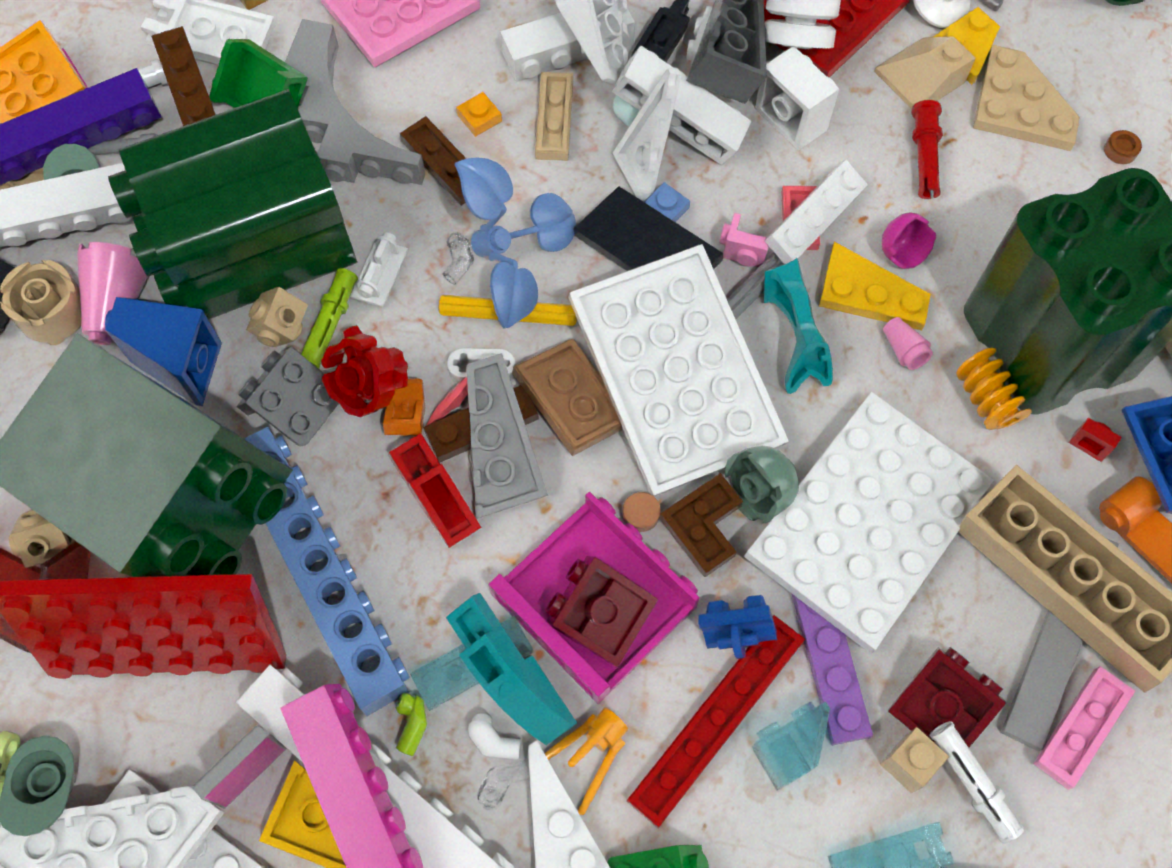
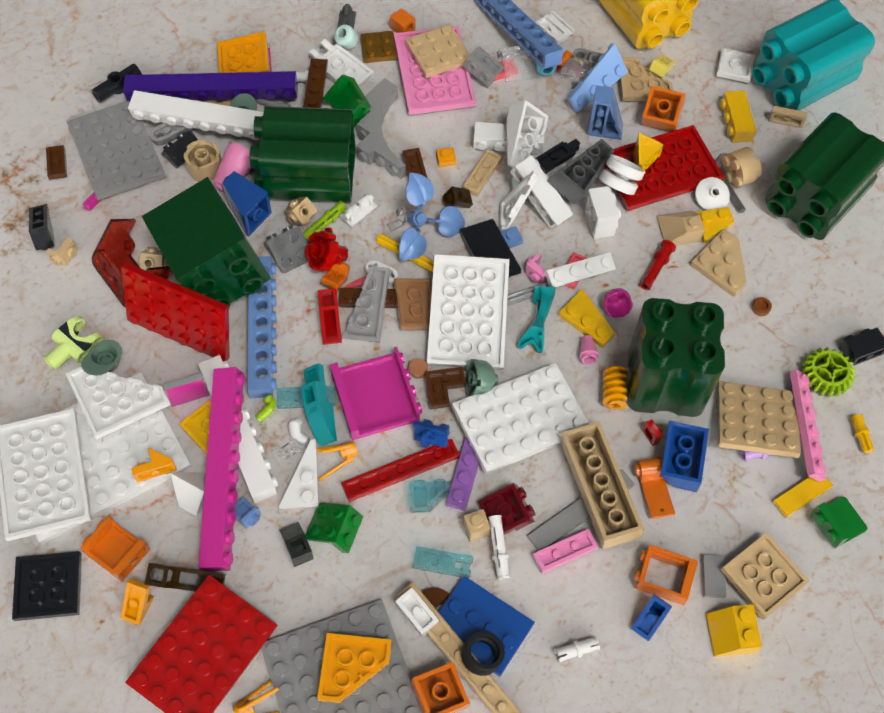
camera: 25 degrees right, 5 degrees down
(537, 175) = (457, 197): none -> dark brown bracket
(600, 609) = (373, 398): dark red plate -> none

